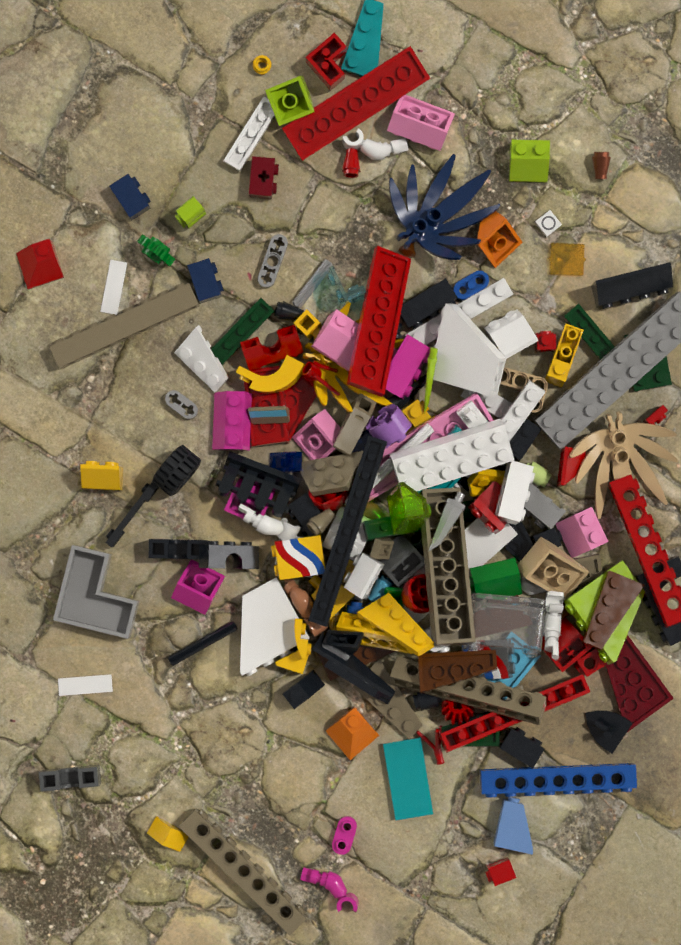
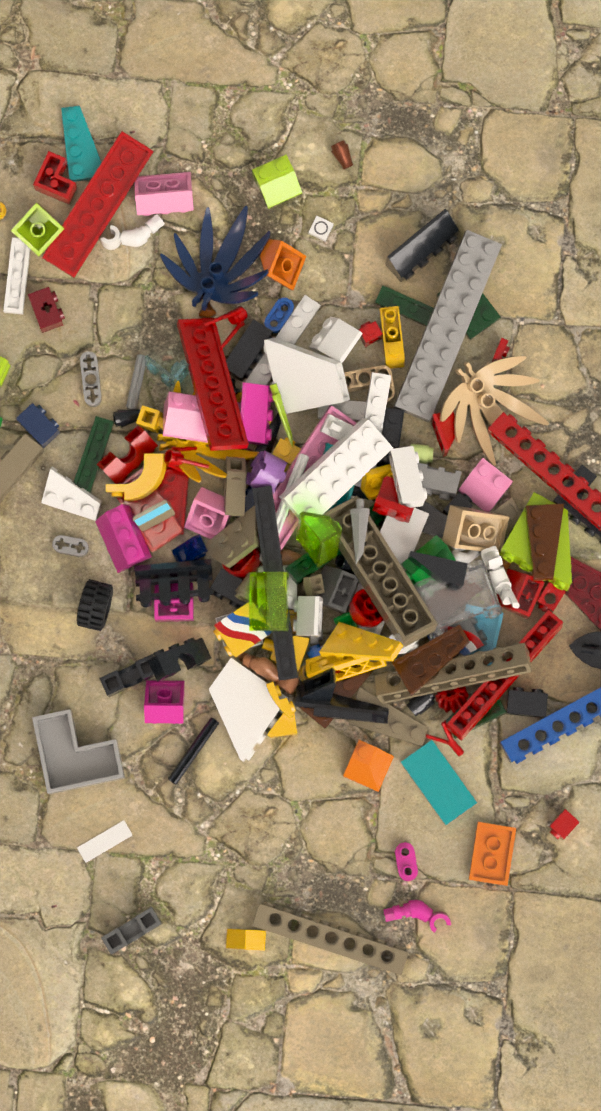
camera: 25 degrees left, 5 degrees down
(101, 476) = (29, 643): yellow slope -> none
(115, 535) = (67, 691): black container -> none
(268, 525) = (202, 613): white piece -> none
(303, 689) = (304, 747): black slope -> none
(333, 546) = (268, 601): none -> clear neon green slope
(351, 164) = (119, 260): red cone -> none
(379, 587) = (328, 622): medium azure cone -> none
(424, 866) = (492, 853): none -> orange plate
(430, 267) = (236, 317): none -> red plant
(505, 596) = (443, 570): none -> black slope
(513, 828) = (554, 779): medium blue slope -> none
(567, 259) = (353, 252): clear yellow piece -> none

